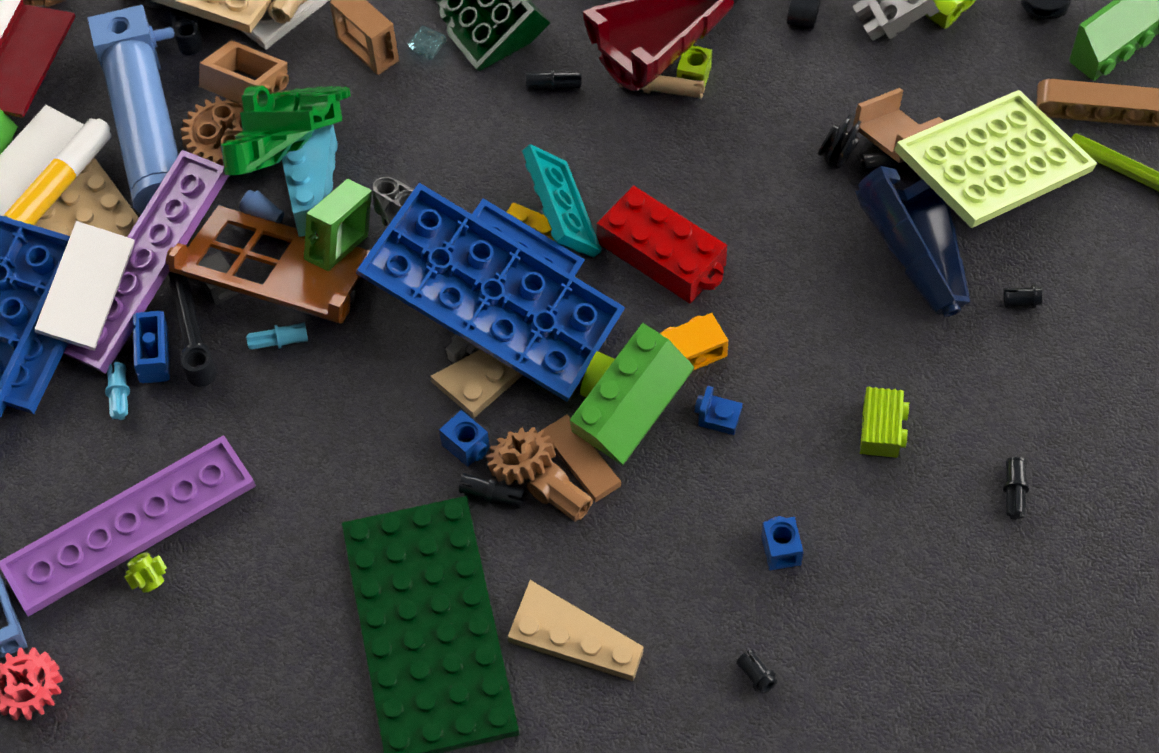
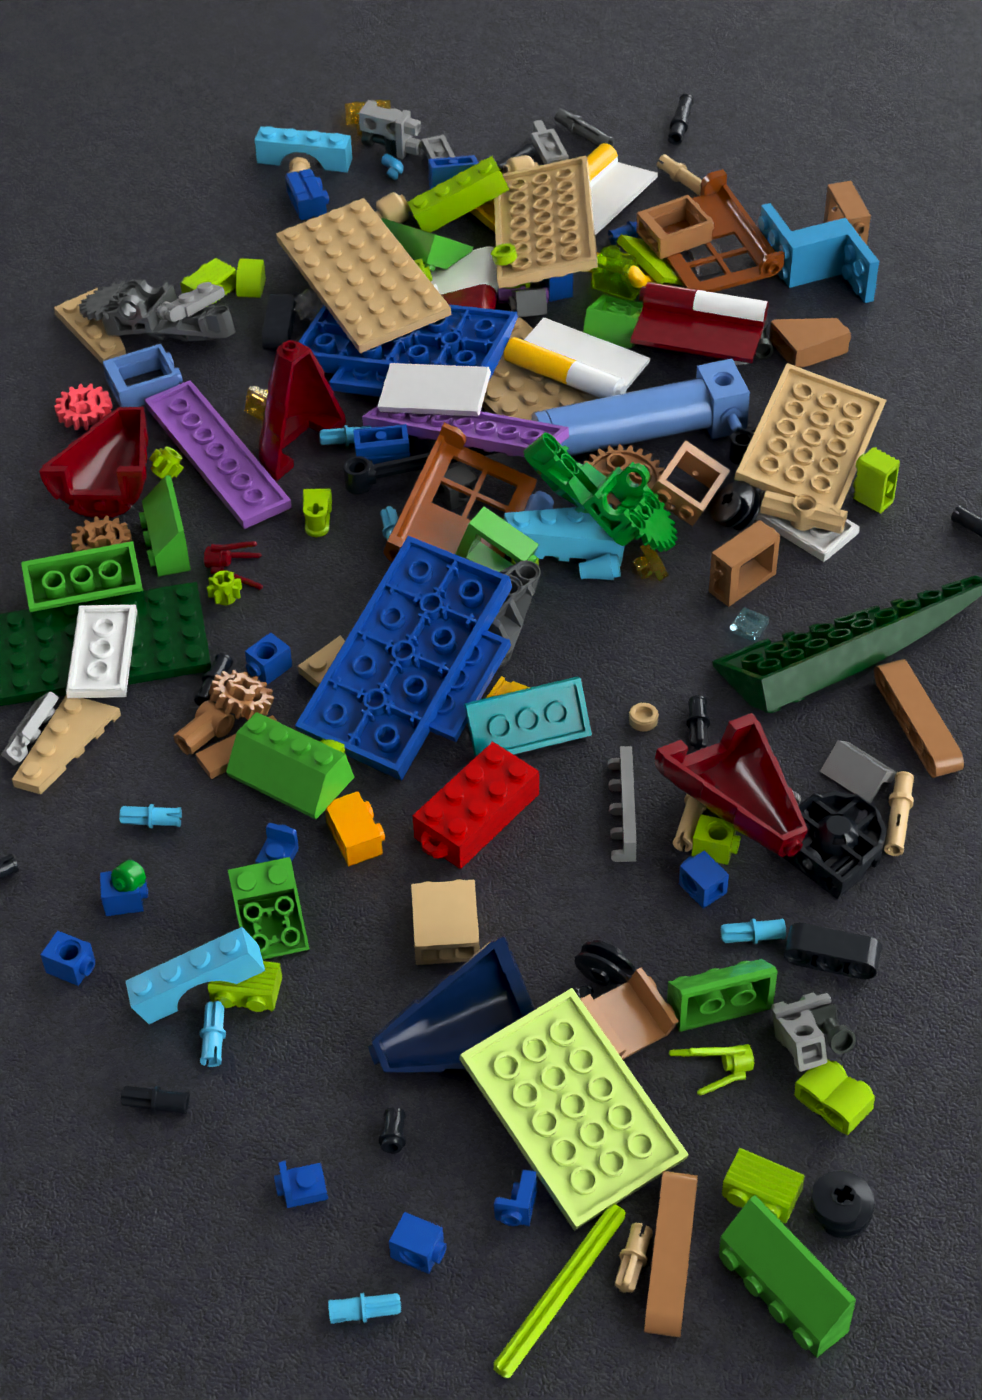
camera: 90 degrees right, 10 degrees down
(50, 482) = (256, 402): none -> clear yellow tile
(106, 428) = (295, 401): none -> dark red cone
(149, 624) = (103, 467): none -> dark red cone
(235, 410) = (317, 510): none -> lime piece
(263, 554) = (165, 530): none -> bright green slope
(274, 642) = (100, 534): none -> medium nougat gear
(281, 26) = (736, 506): none -> black piece
(305, 501) = (219, 557): none -> dark red plant
(345, 634) = (81, 576): none -> bright green slope
(348, 150) = (603, 568): none -> medium azure cone
(349, 108) = (649, 564): none -> clear yellow tile
(355, 491) = (224, 587): none -> lime gear
(454, 600) = (101, 651): none -> white tile
(542, 123) = (643, 717): none -> tan tile
(557, 667) = (28, 729): none -> light grey hinge
(654, 130) = (625, 808): none -> light grey hinge
(679, 530) = (150, 816): none -> medium azure axle
(738, 76) = (703, 879): none -> blue brick
(776, 528) = (128, 876): none -> green piece
(788, 45) = (753, 931): none -> medium azure axle
(791, 411) = (269, 907): none -> bright green slope
(798, 265) = (445, 921): none -> tan brick
(861, 57) = (722, 993): none -> bright green slope
(863, 593) = (58, 954): none -> blue brick
(905, 473) = (226, 958): none -> medium azure arch
(922, 60) = (734, 1059): none -> lime plant
(939, 446) = (212, 1034): none -> medium azure axle
(1039, 44) = (767, 1180): none -> lime brick
(1078, 198) = (520, 1207): none -> blue bracket
(1084, 363) = (301, 1184): none -> blue bracket
(1115, 128) = (633, 1258): none -> tan axle
(1131, 271) = (417, 1243): none -> blue brick

